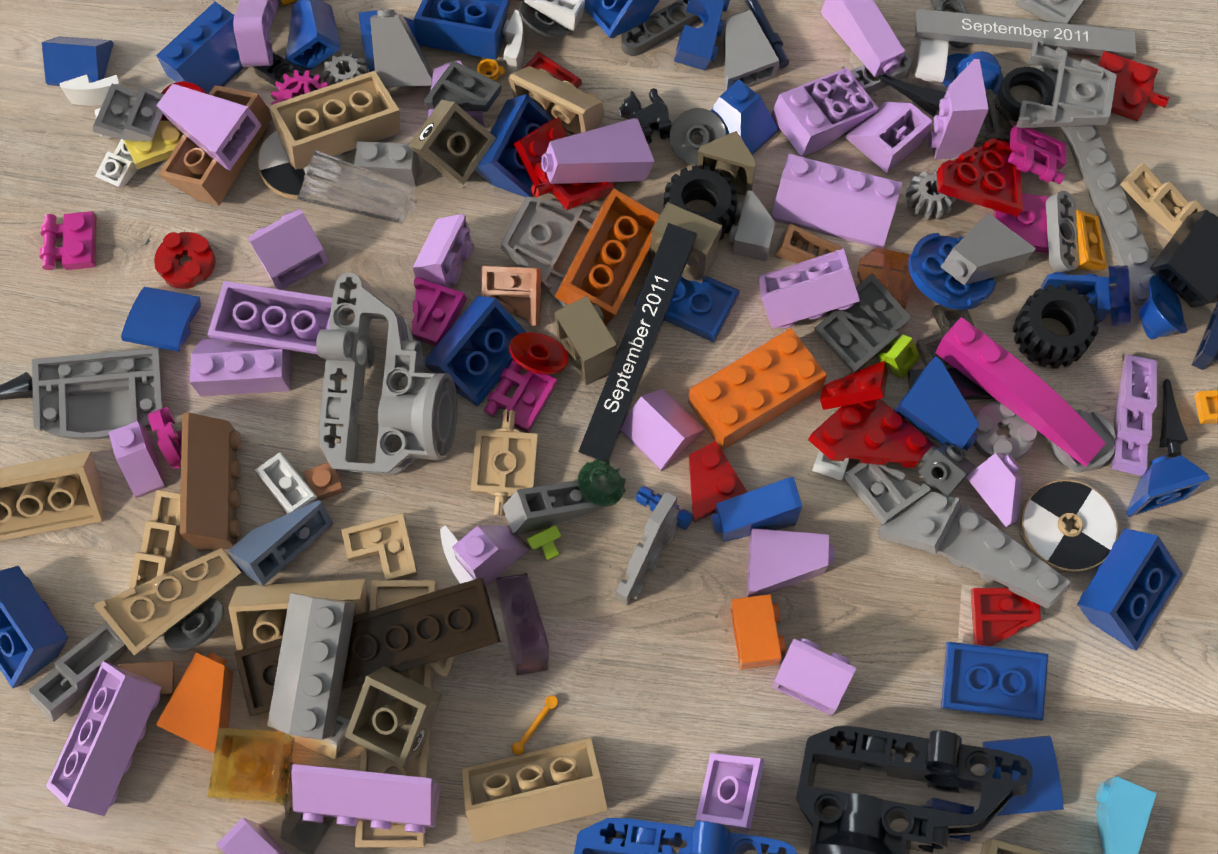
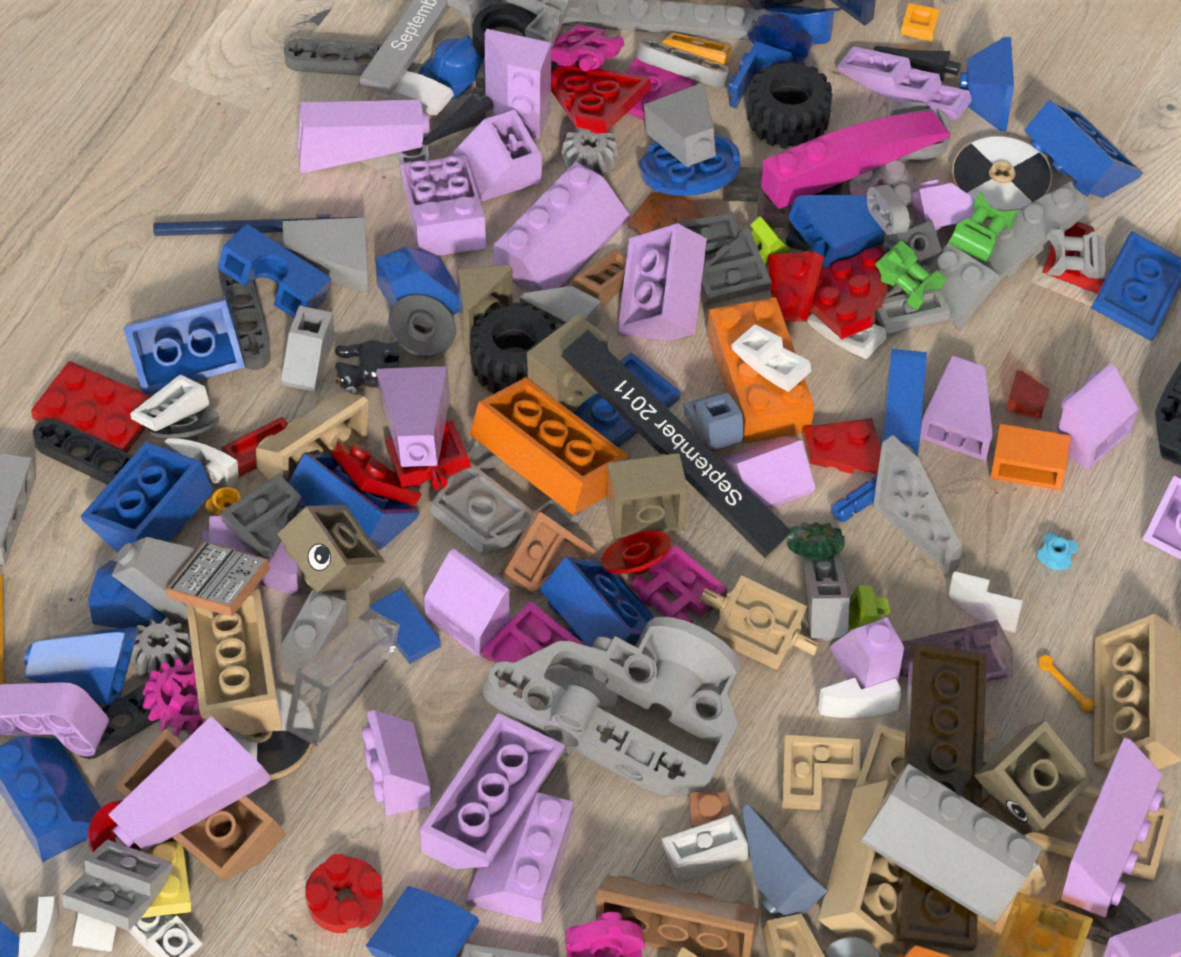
camera: 75 degrees left, 15 degrees down
(392, 79) = (218, 578): none -> tile
(417, 227) = (415, 634): none -> blue tile
(588, 628) = (972, 596): none -> white slope
(642, 69) = (307, 348): none -> light grey slope
(659, 688) = (1053, 559): none -> medium azure plate
(686, 368) = (715, 420): none -> sand blue brick
(750, 387) = (767, 356): none -> white slope
(826, 613) = (1027, 396): none -> clear red slope
(903, 459) = (894, 270): none -> bright green piece
(955, 432) = (888, 209): none -> light grey beam
(966, 519) = (976, 239): none -> bright green piece
(995, 627) = (1091, 258): none -> light grey piece

